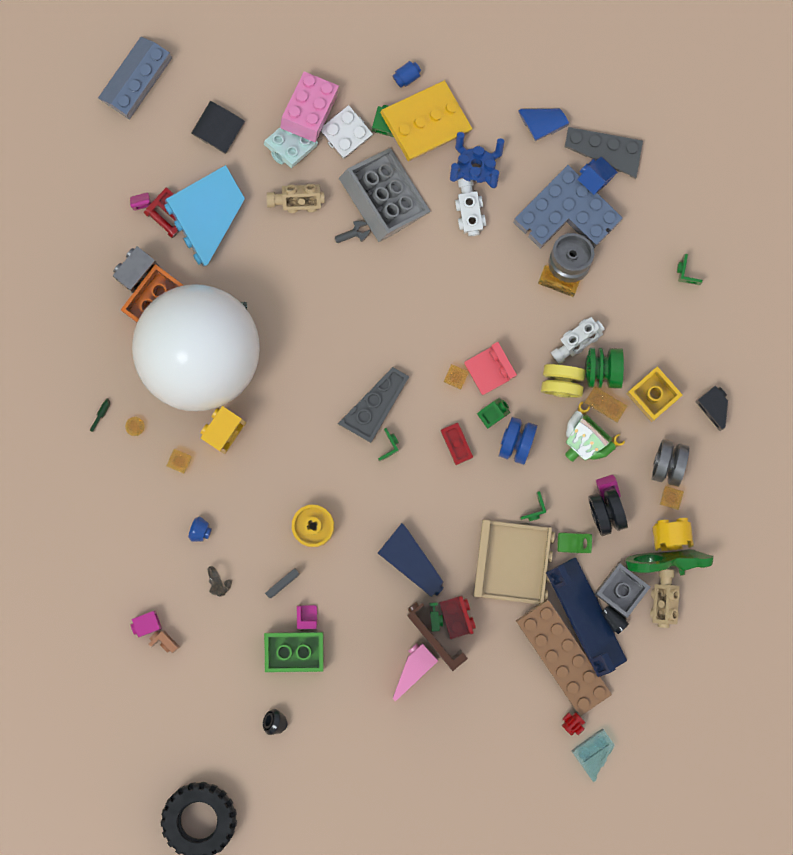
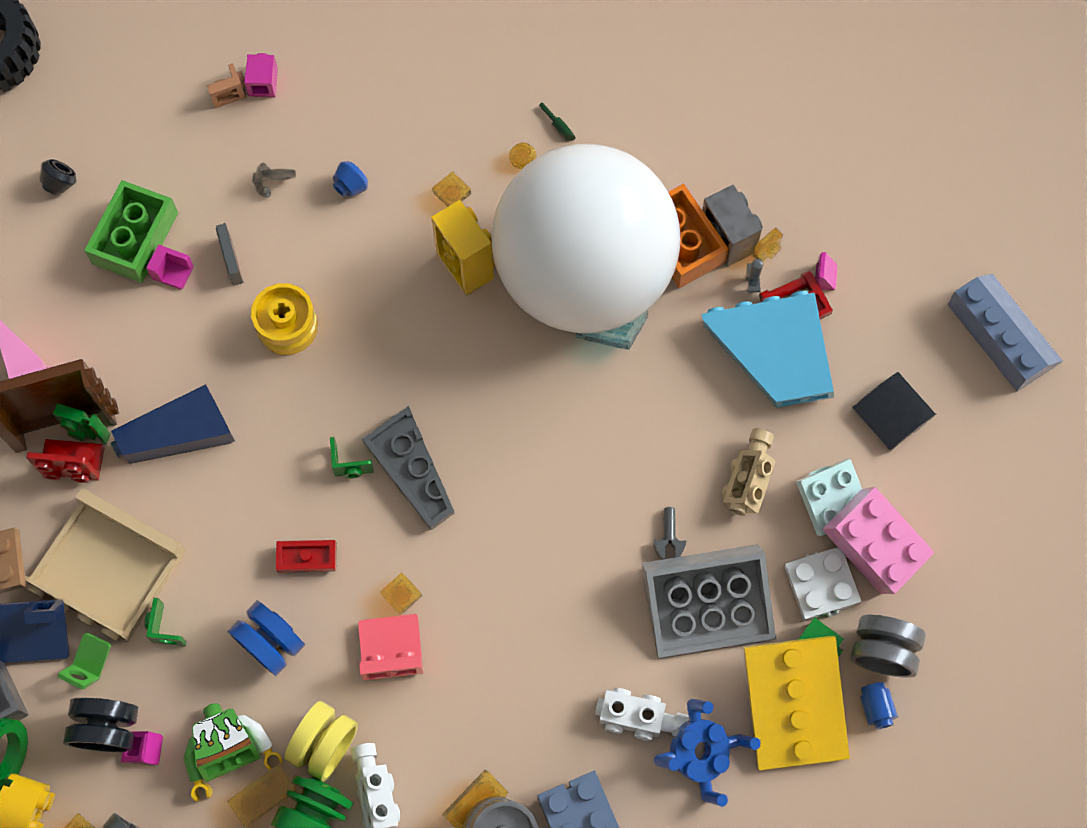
camera: 110 degrees right, 15 degrees down
(137, 241) = (769, 245): none -> clear yellow plate
(162, 243) = (753, 274): none -> dark grey bar
(371, 79) = (888, 646): none -> flat silver wheel
(494, 412) = (325, 627): green bracket -> none

